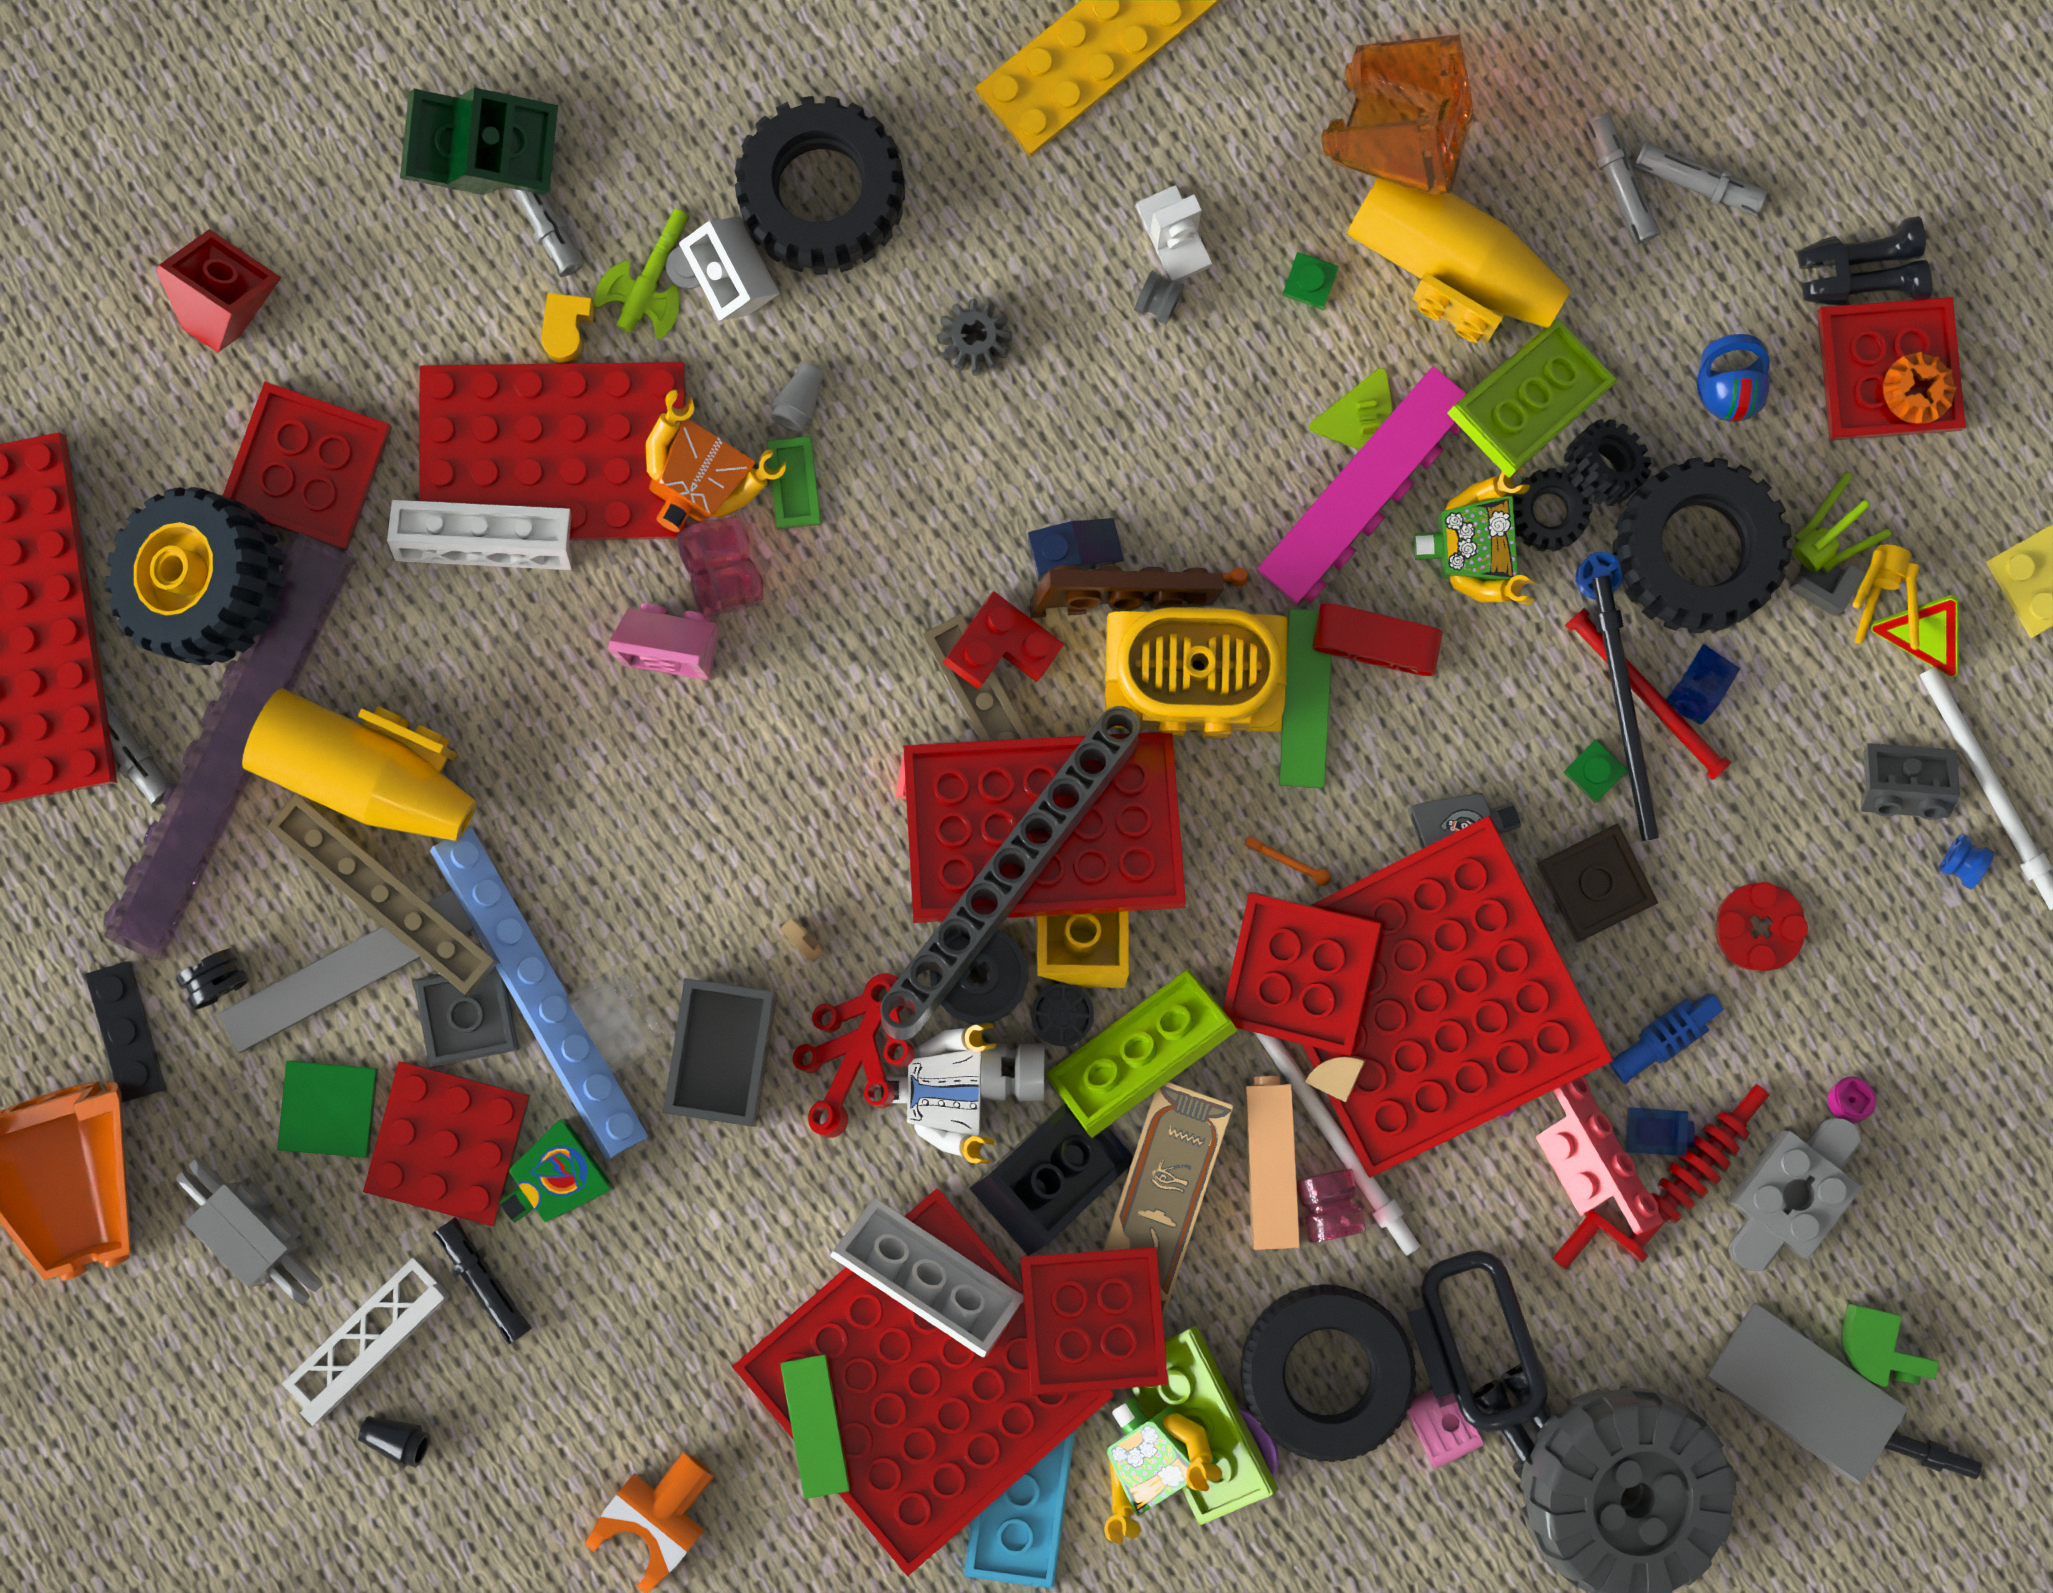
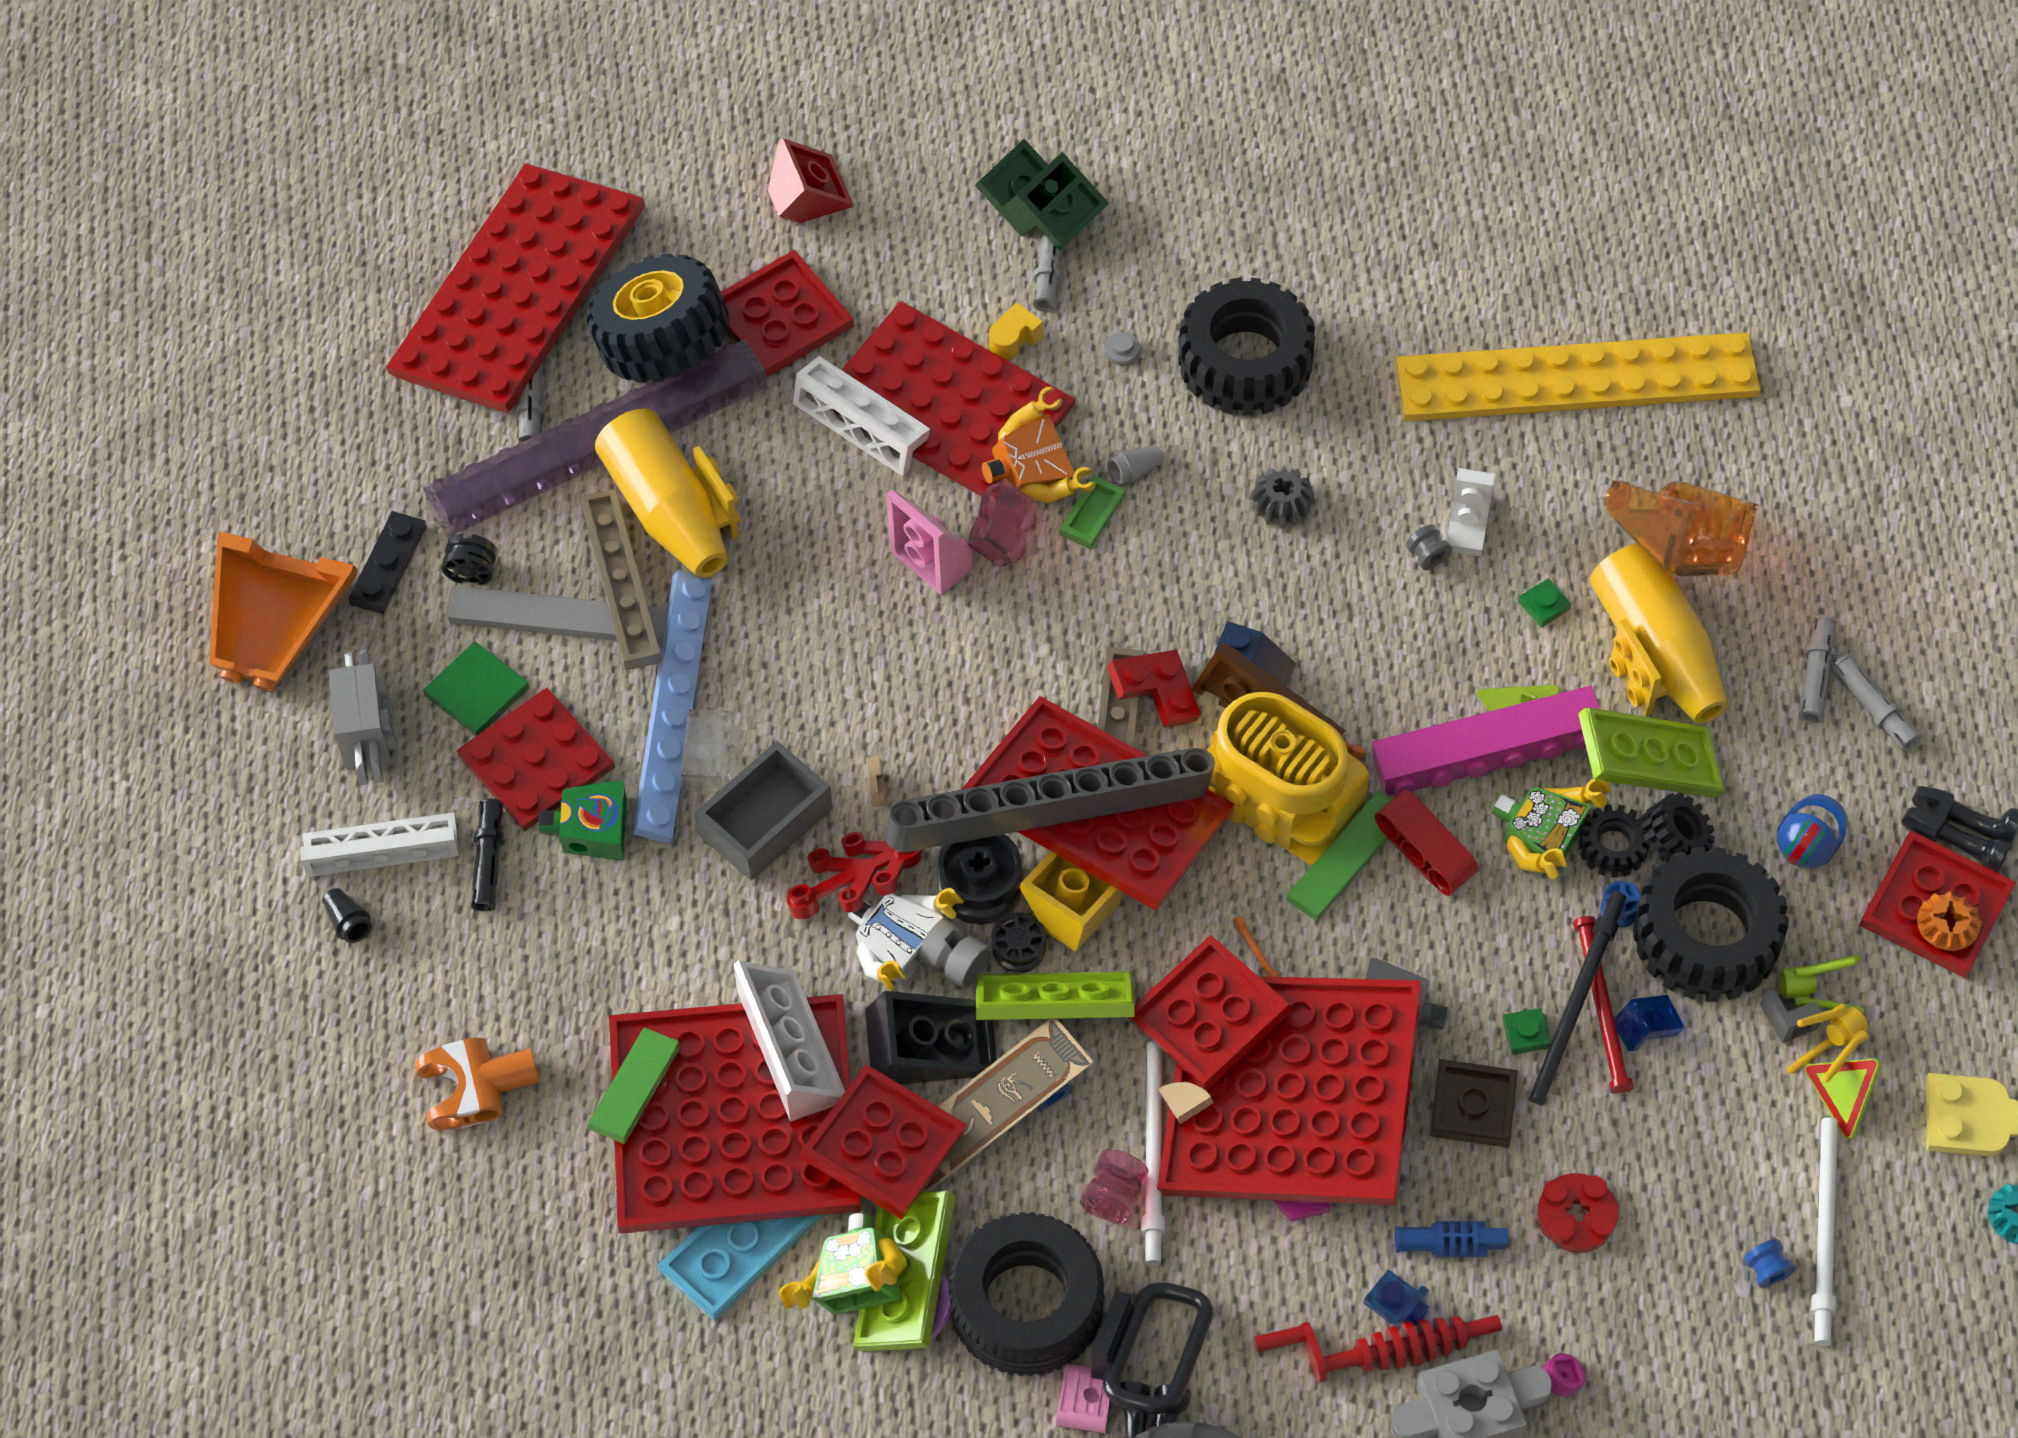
camera: 35 degrees right, 25 degrees down
(464, 1026) = (610, 693): dark grey tile -> none
(640, 295) = (1078, 347): lime piece -> none
(729, 268) = (1147, 358): white brick -> none
(1271, 1164) = (1091, 1132): light nougat brick -> none
(1593, 1161) = (1334, 1279): coral bracket -> none
(1910, 781) = (1762, 1183): dark grey bracket -> none

